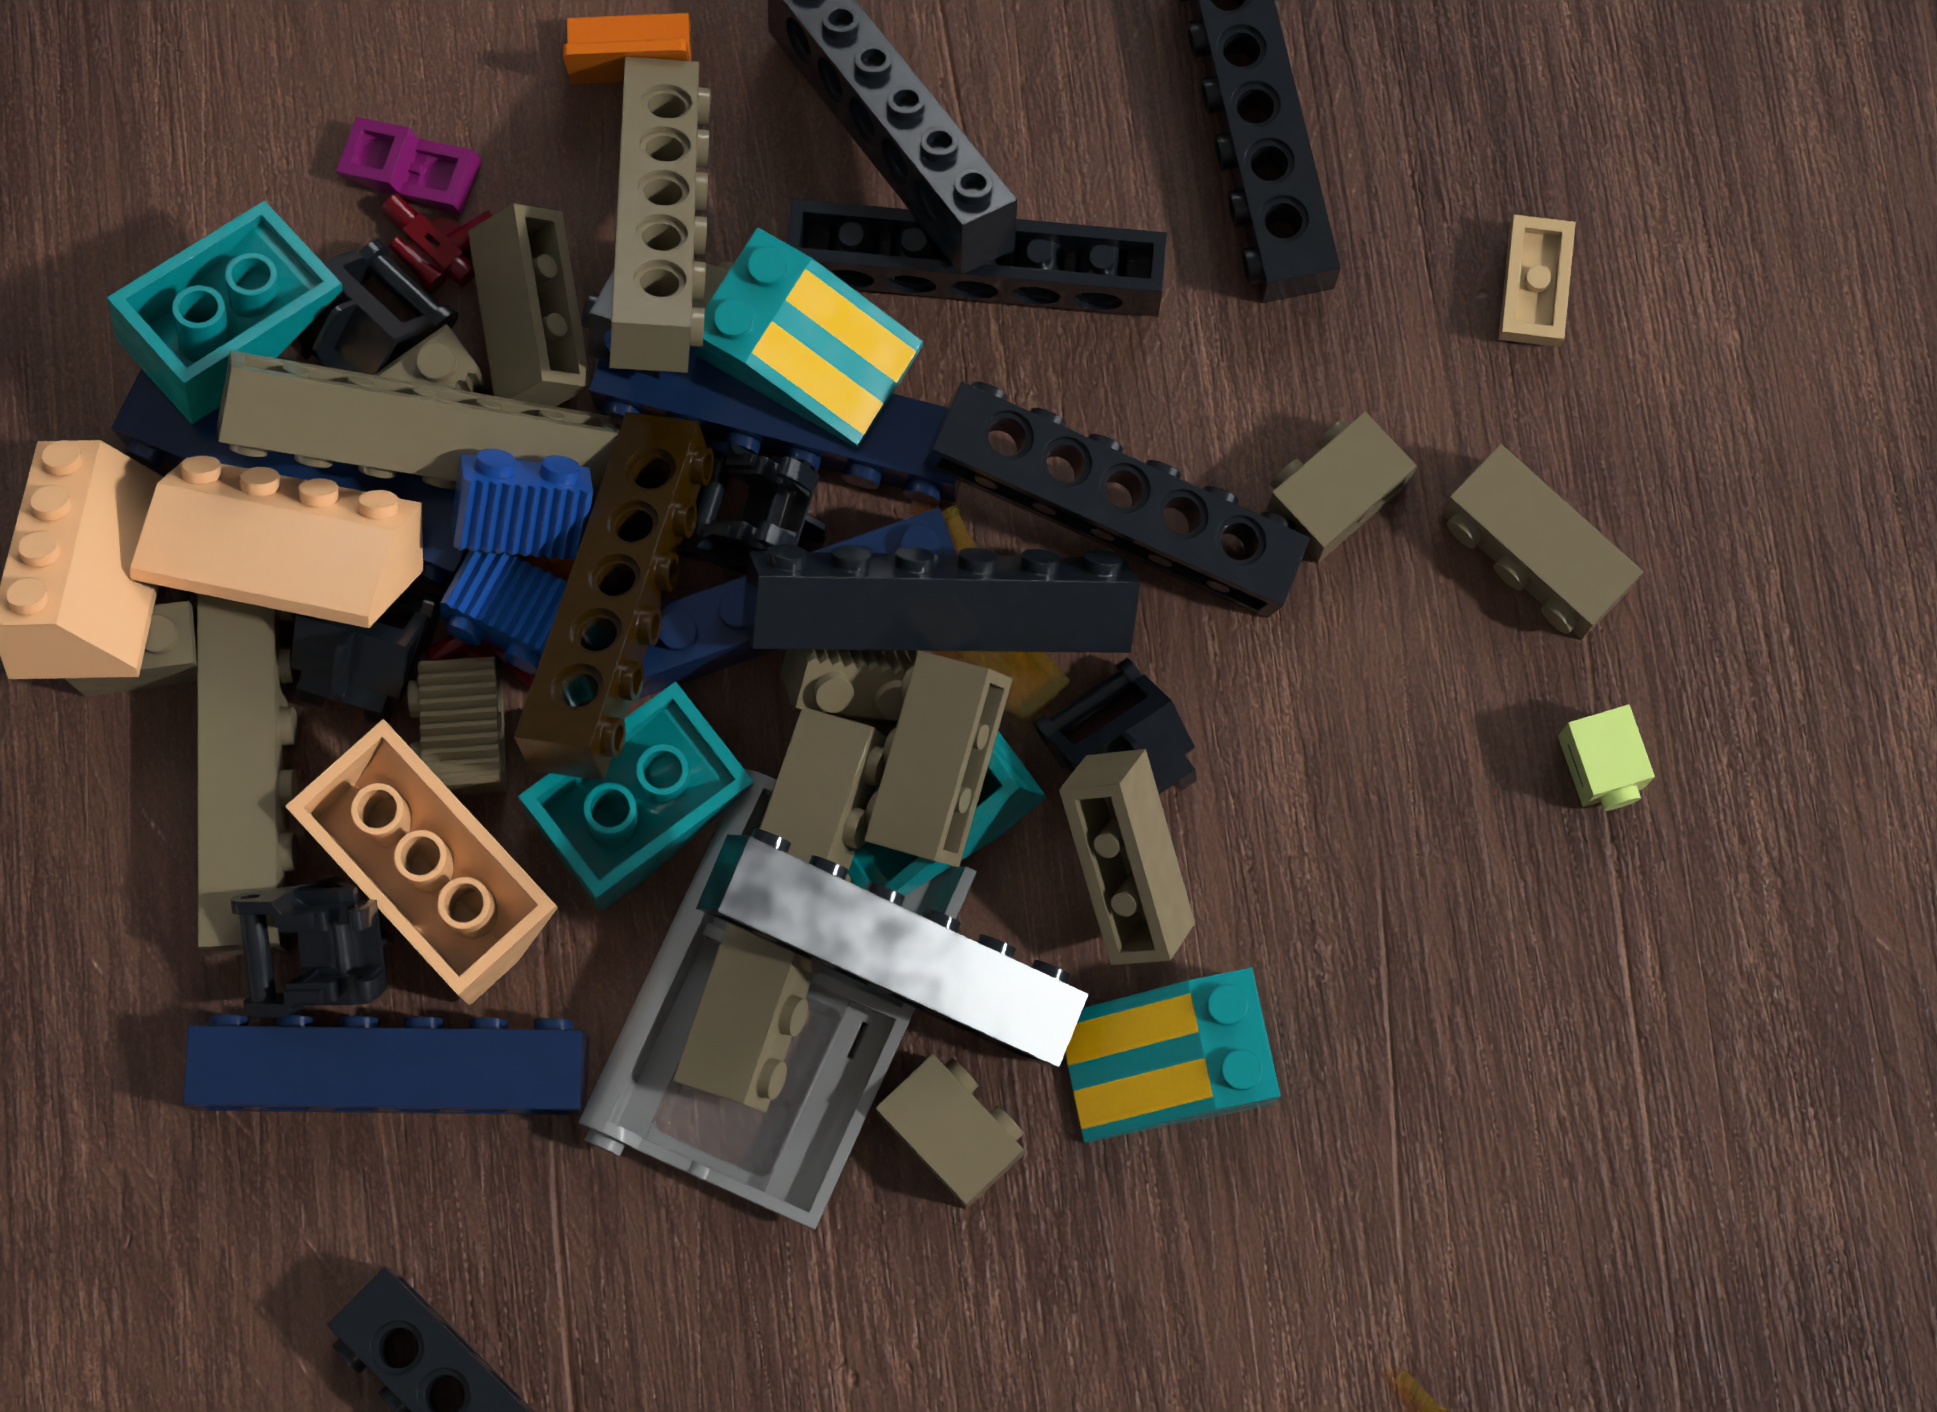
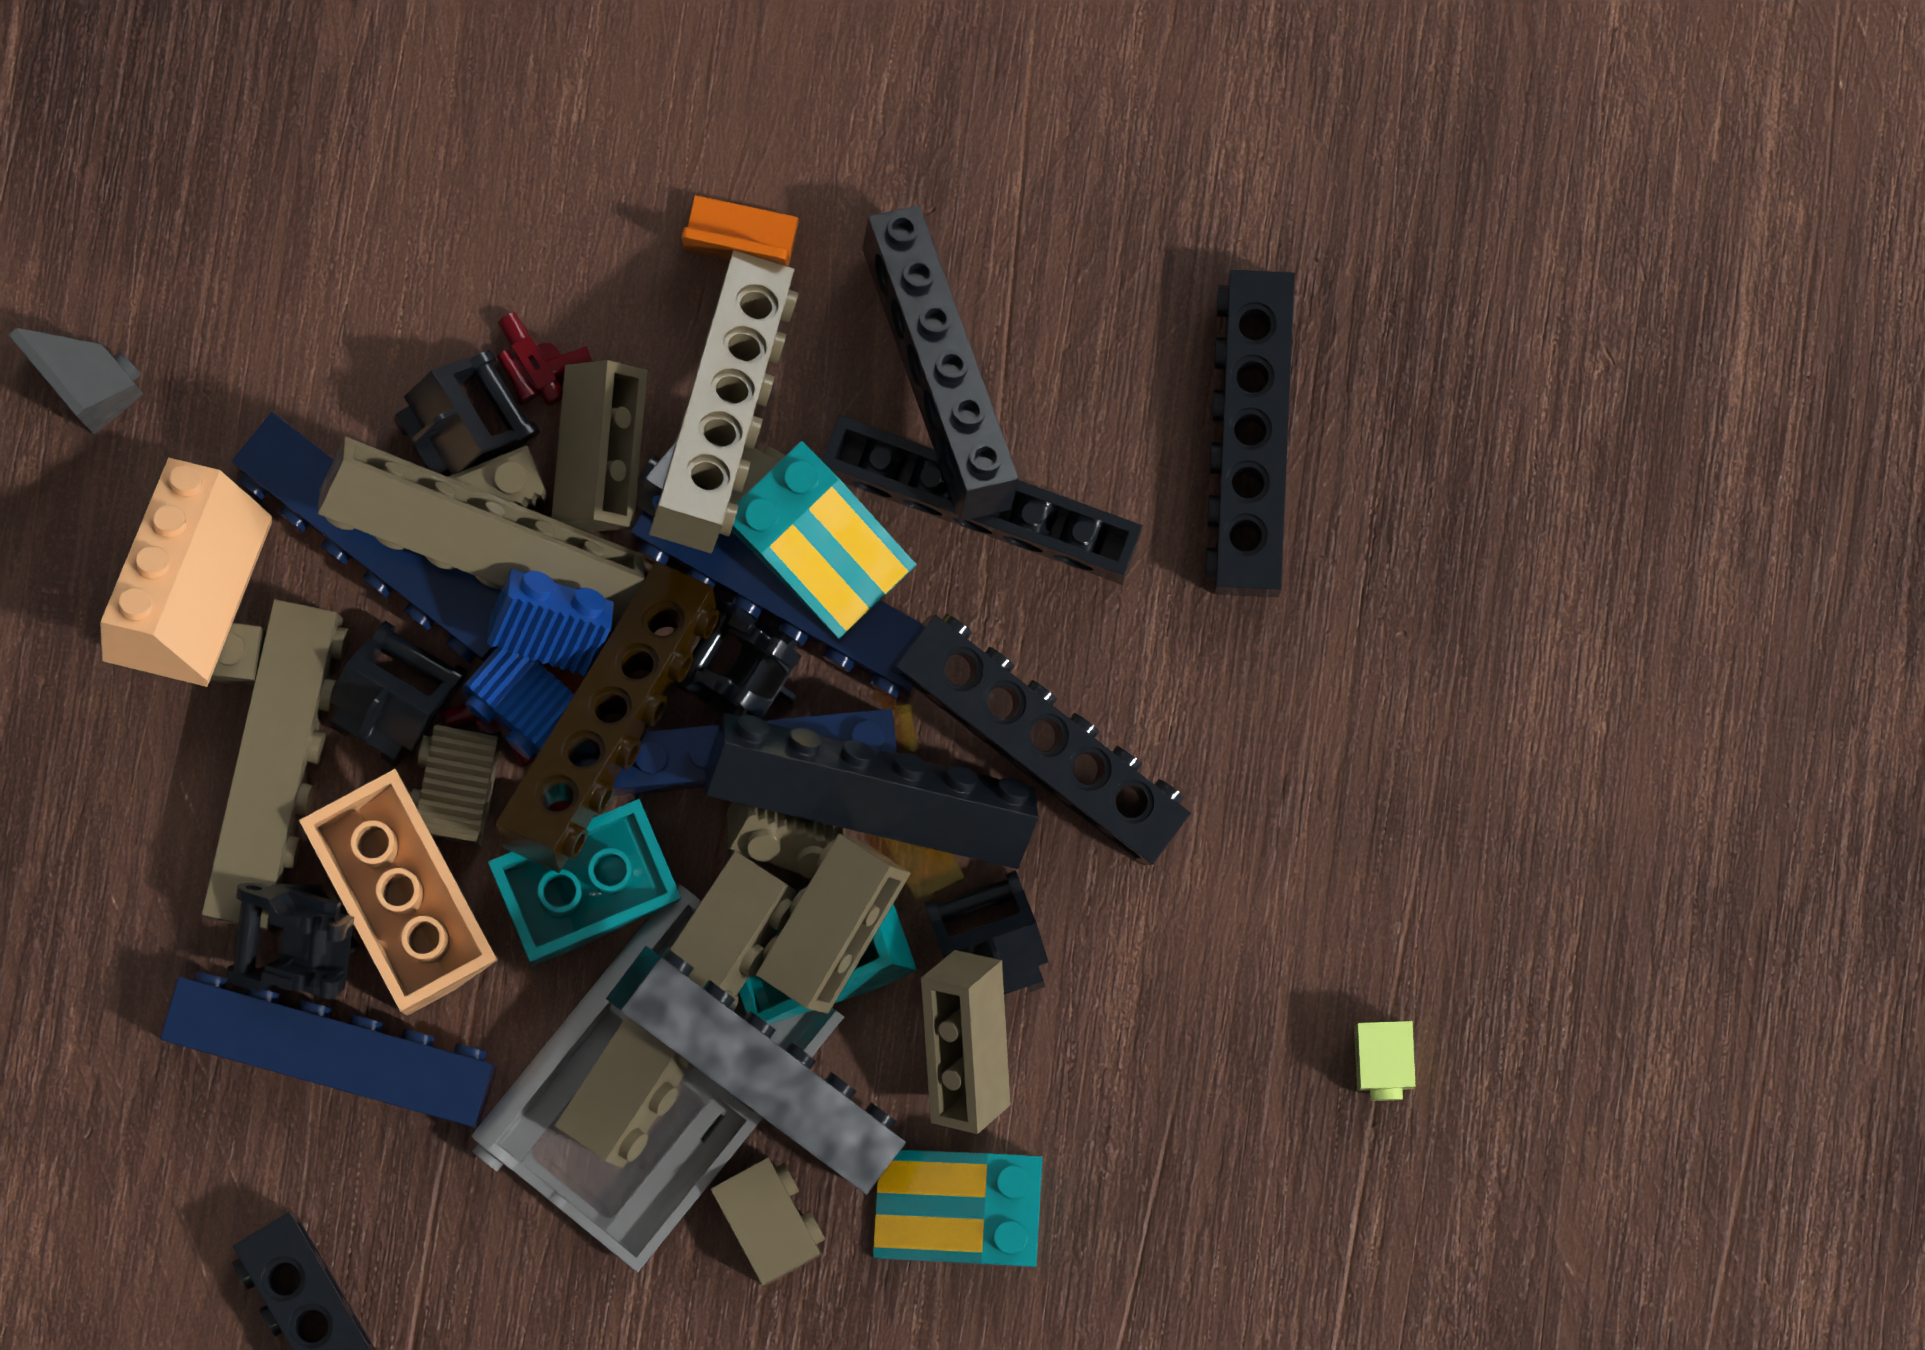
camera: 15 degrees right, 5 degrees up
(233, 290) = (347, 384): teal slope -> none
(279, 541) = (346, 600): light nougat slope -> none
(401, 163) = (530, 289): magenta slope -> none
(1341, 483) = (1231, 771): dark tan brick -> none
(1537, 280) = (1447, 638): tan plate -> none
(1540, 543) = (1382, 864): dark tan brick -> none

